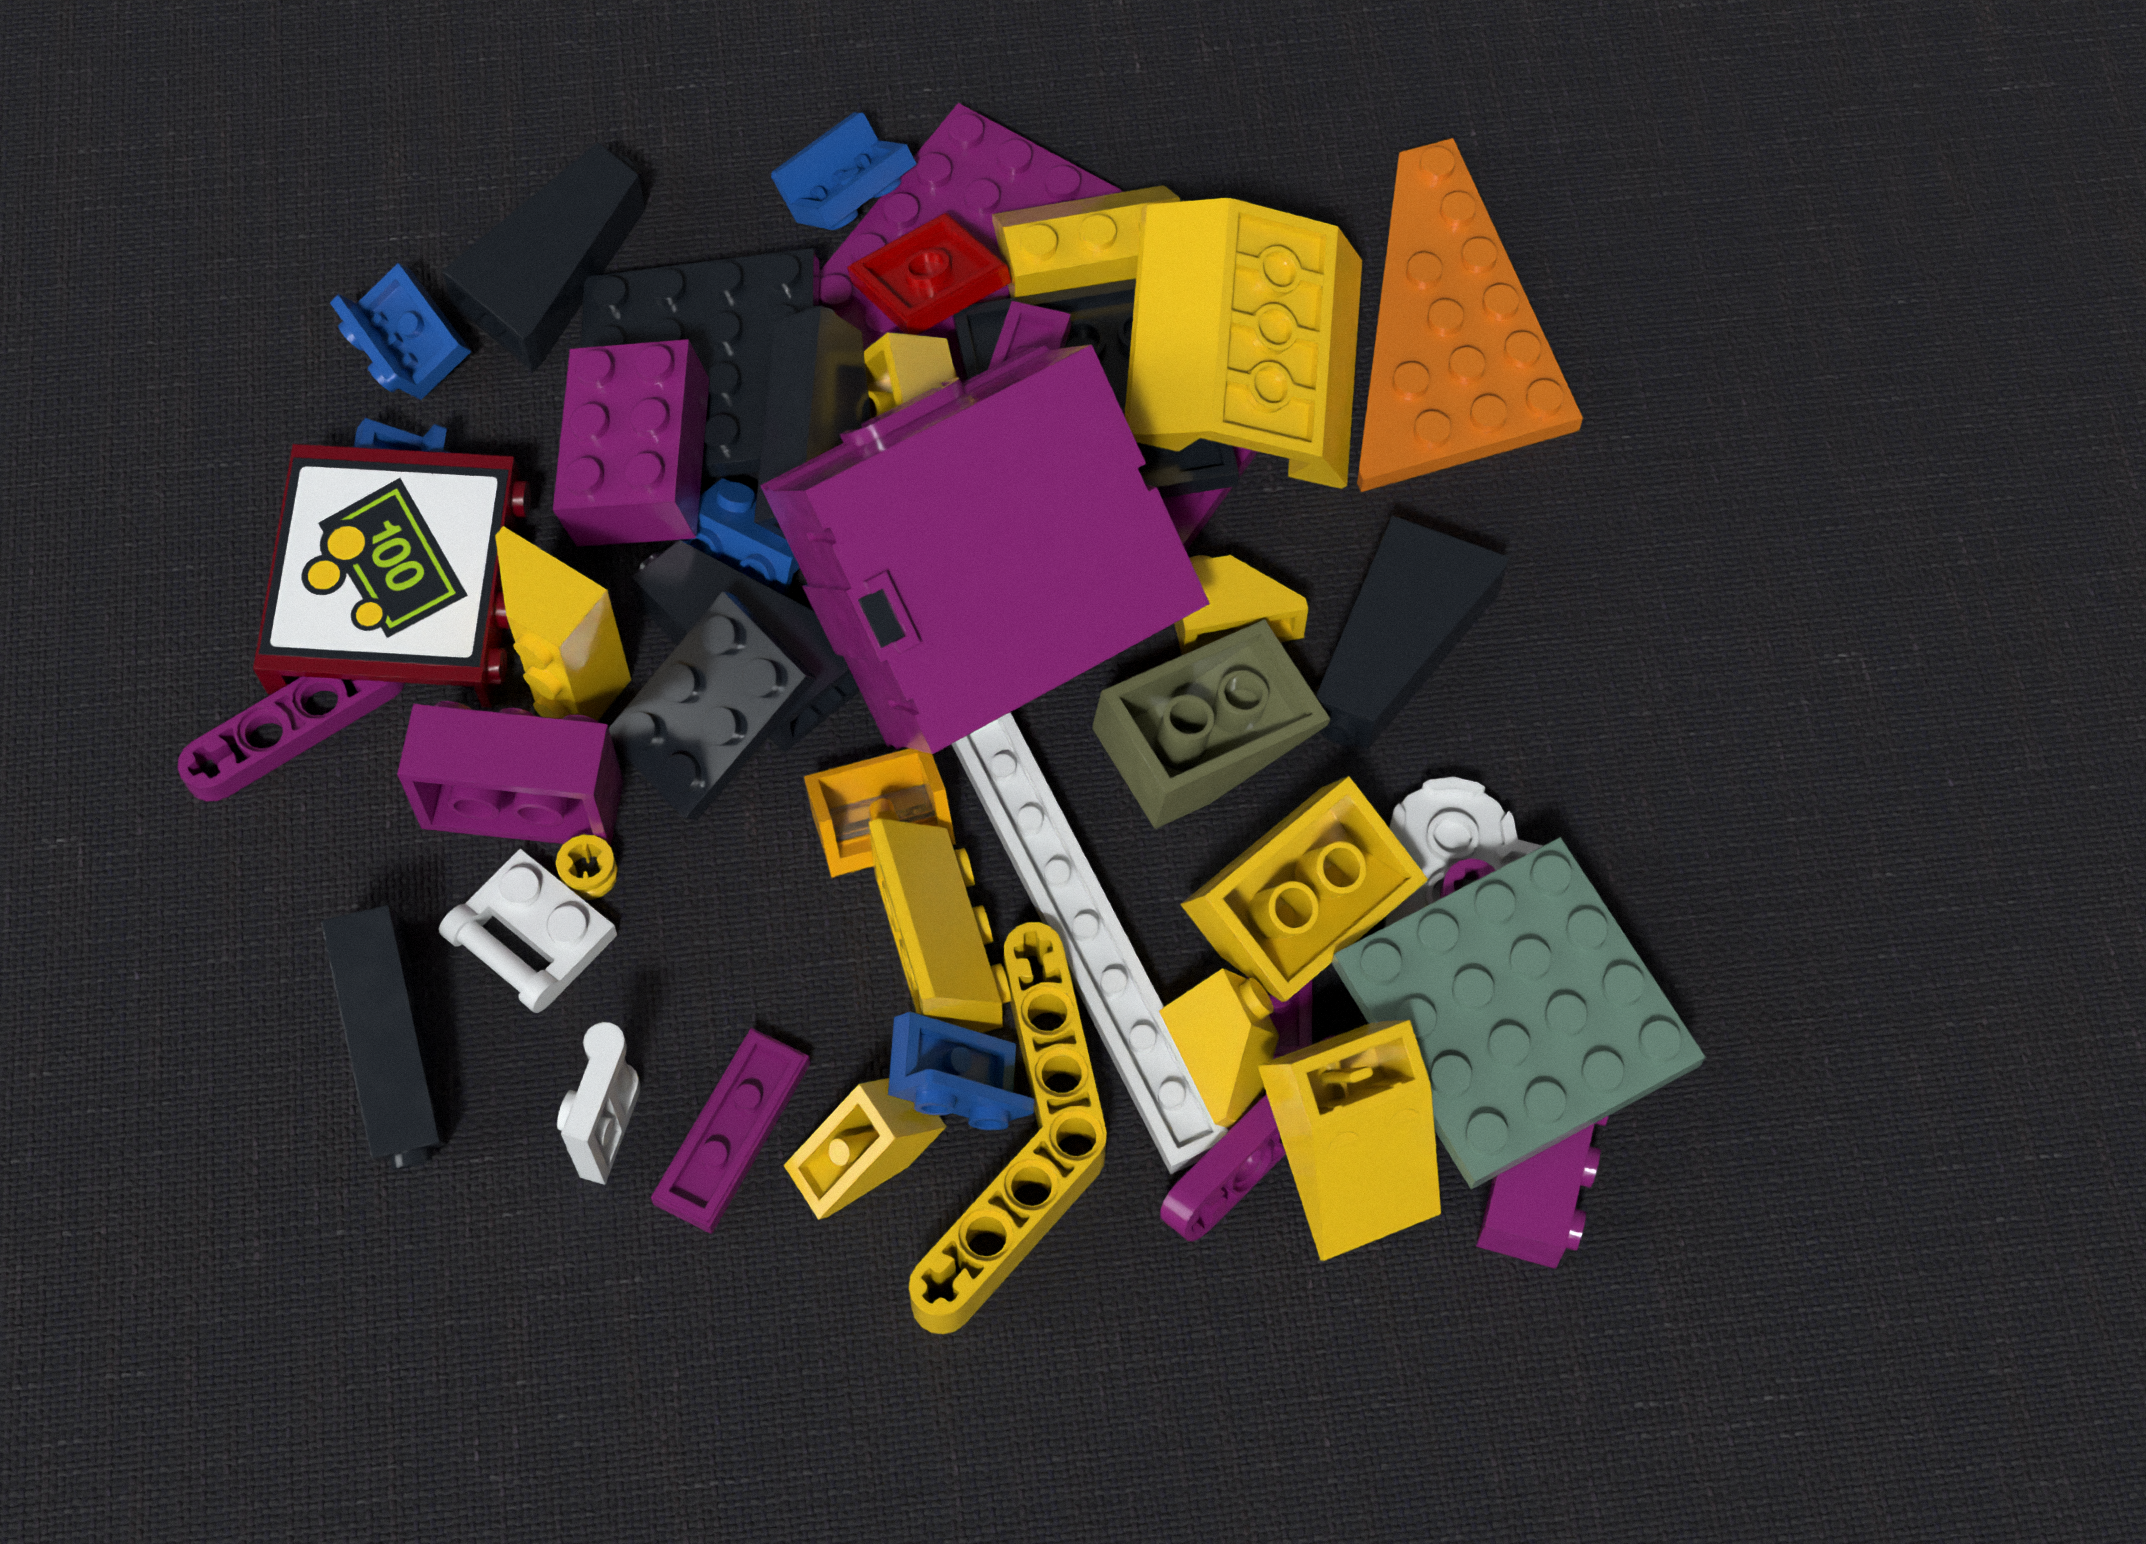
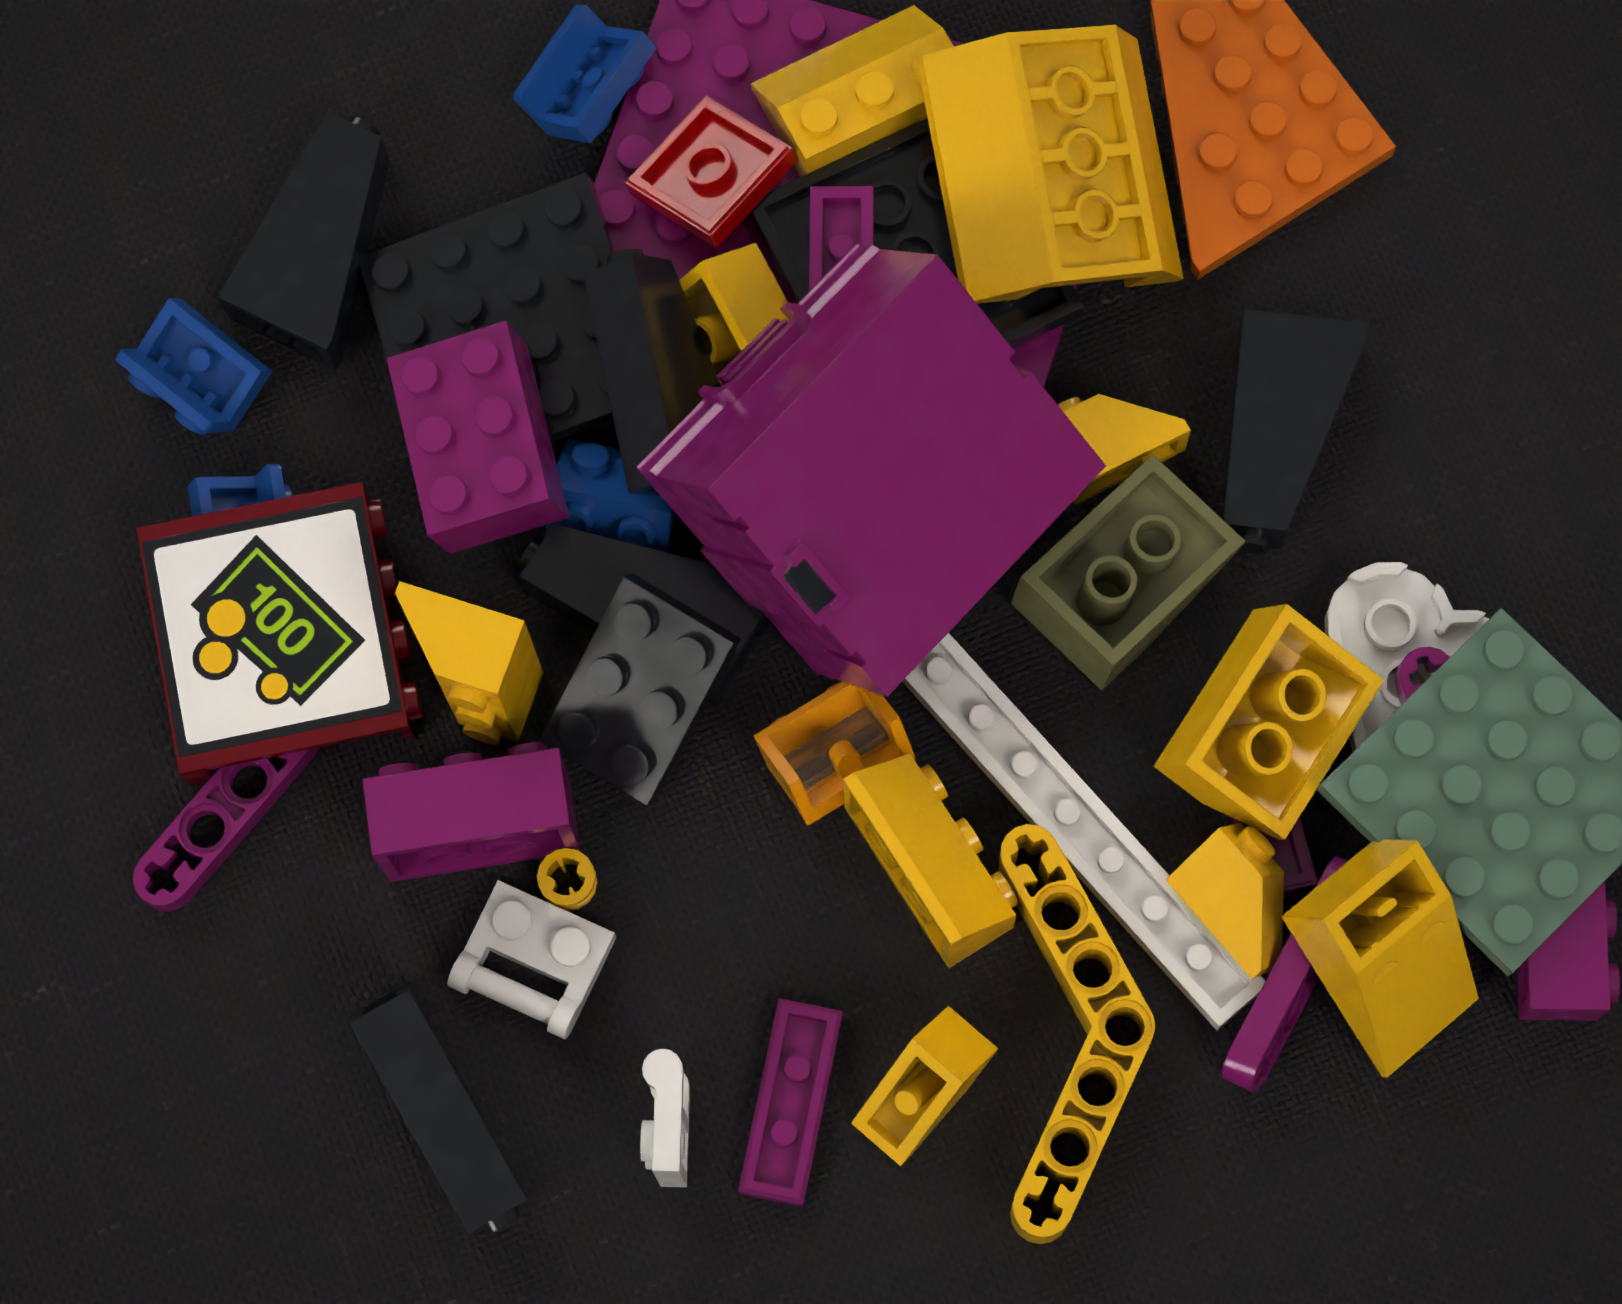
camera: 10 degrees left, 10 degrees up
(955, 1072) = (992, 993): blue bracket -> none

